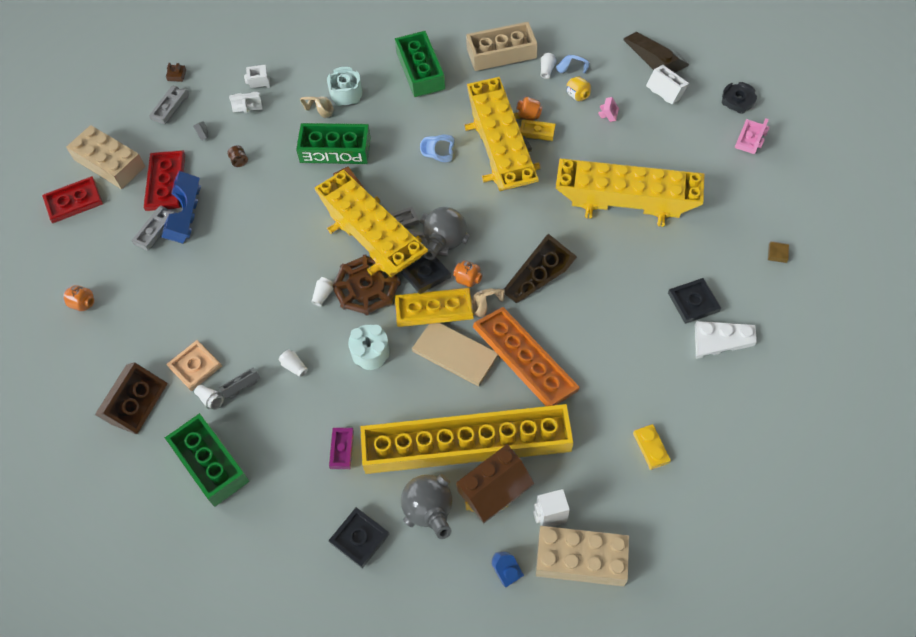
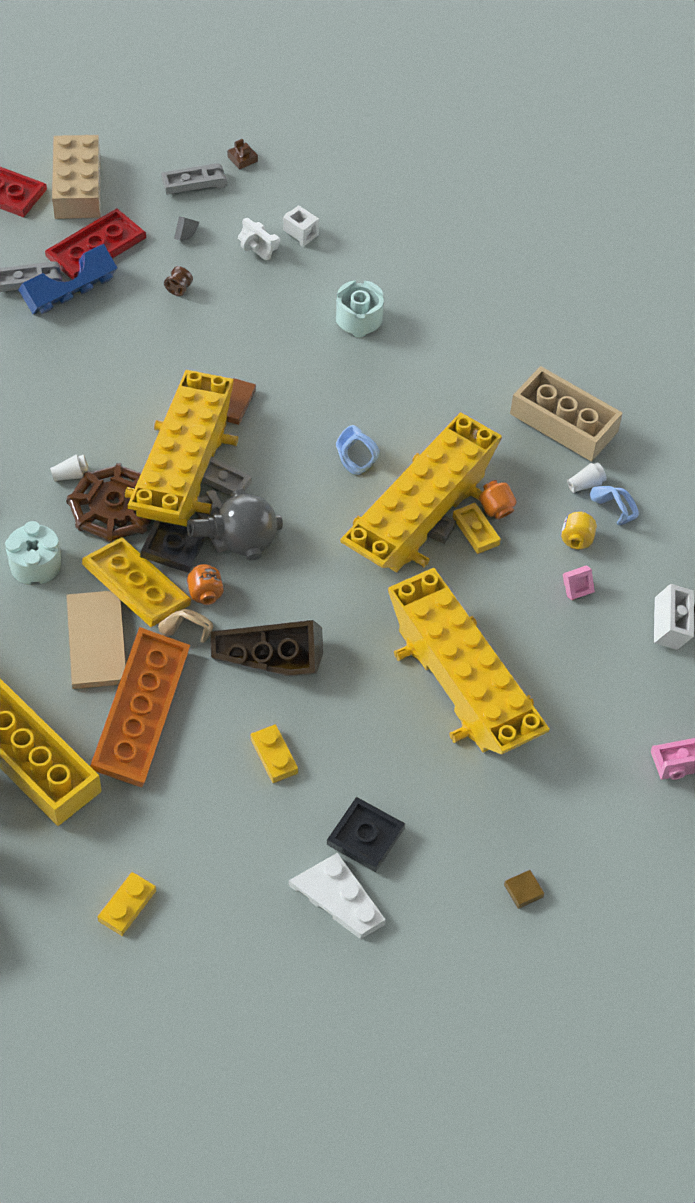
camera: 45 degrees right, 5 degrees down
(323, 105) = (314, 309): tan piece -> none
(333, 143) = (270, 350): green brick -> none
(420, 63) = (459, 353): green brick -> none
(606, 312) = (274, 753): none -> yellow plate

